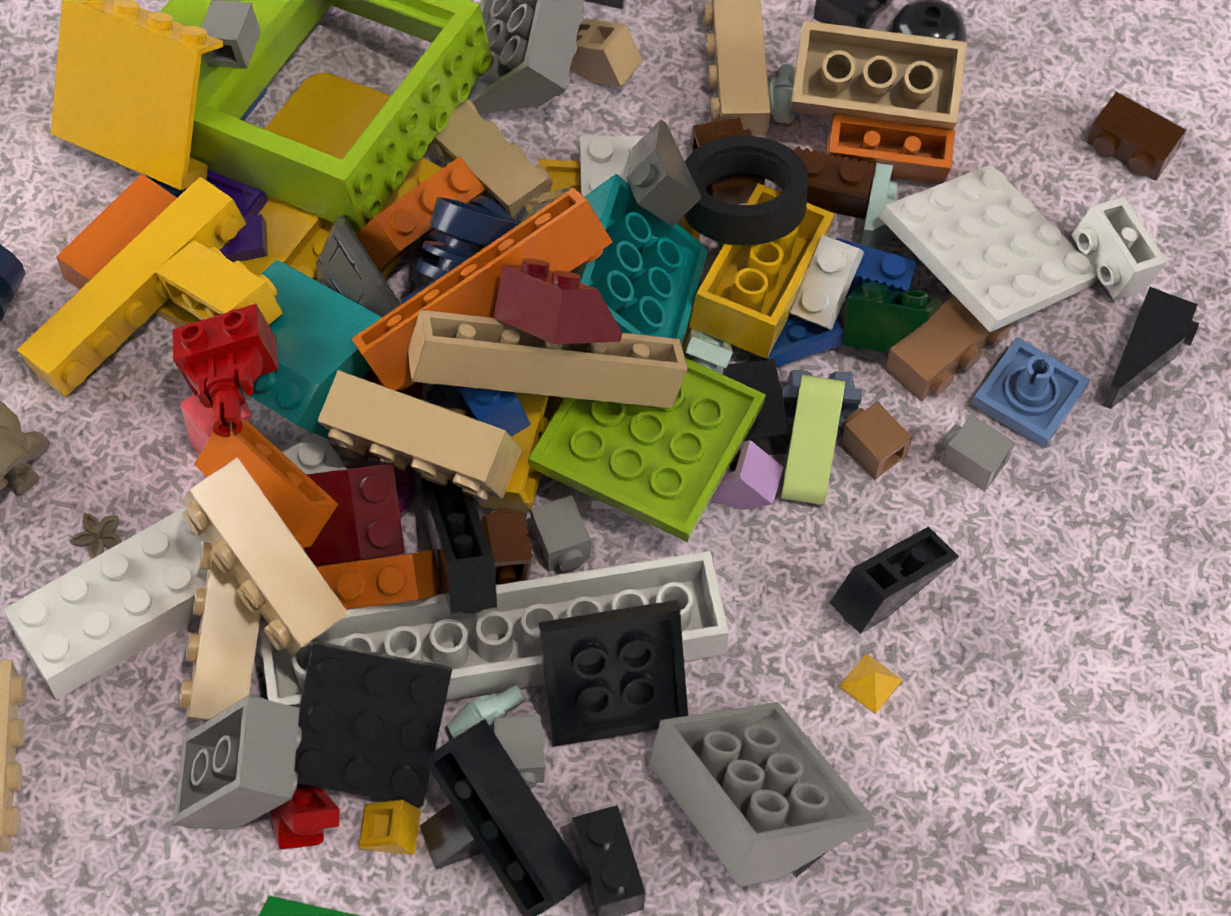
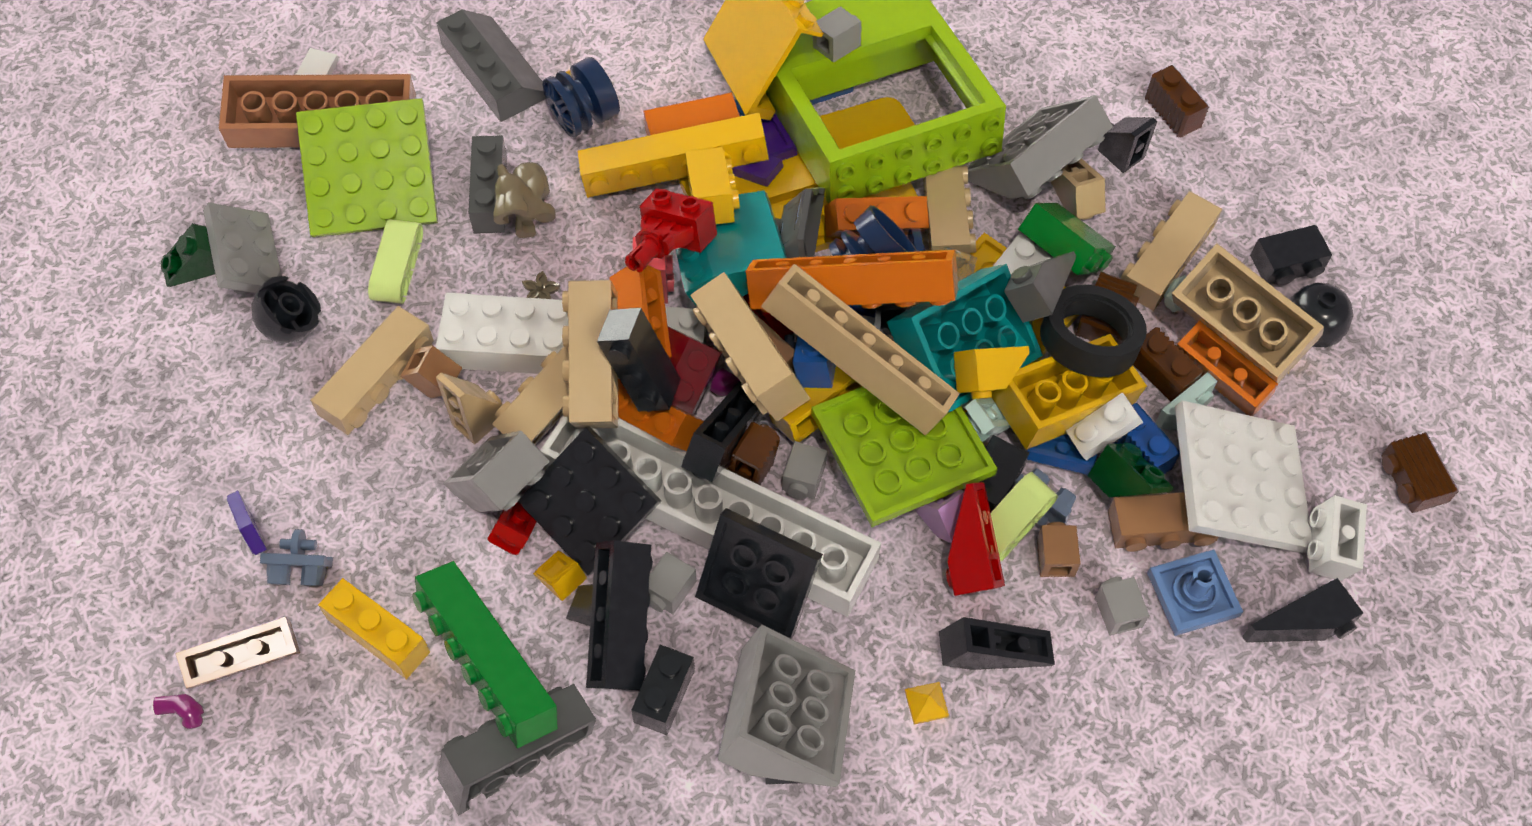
camera: 40 degrees right, 0 degrees up
(58, 710) = (425, 366): none -> medium nougat brick
(143, 719) = (469, 406): none -> tan slope
(325, 526) = (639, 359): none -> black brick
(486, 708) = (672, 544): light aqua piece -> none
(553, 305) = (878, 315): dark red slope -> none
(632, 110) = (1062, 232): none -> green brick
(682, 297) = (987, 369): none -> yellow slope
(807, 501) = (974, 551): none -> red slope

